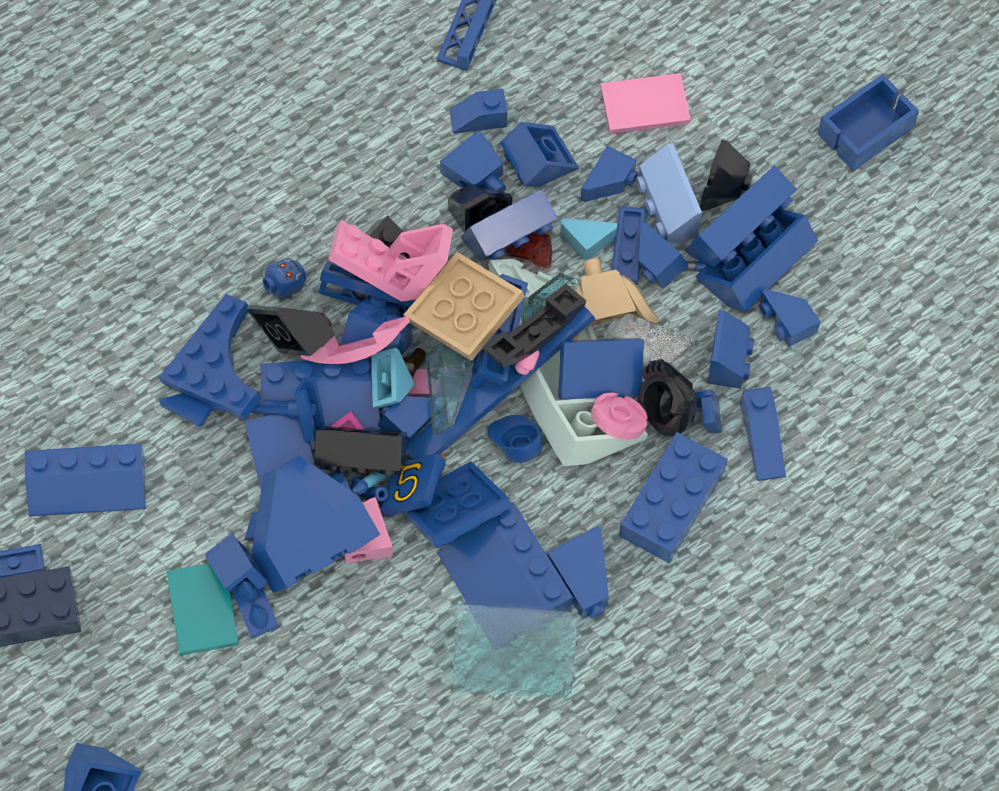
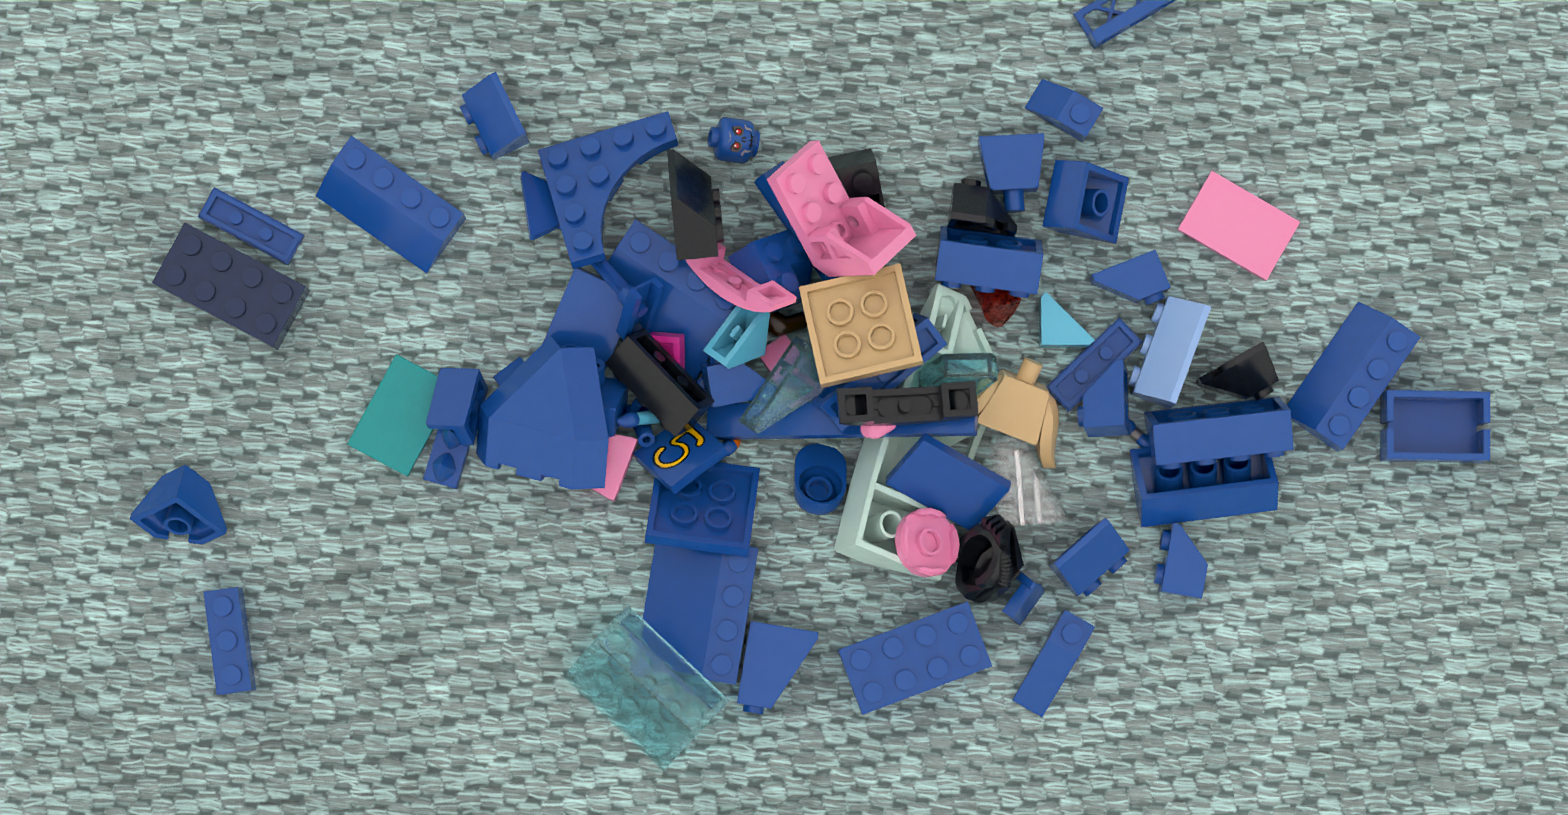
camera: 35 degrees right, 20 degrees up
(113, 372) = (494, 117): none -> blue slope
(792, 131) = (1351, 375): none -> blue slope

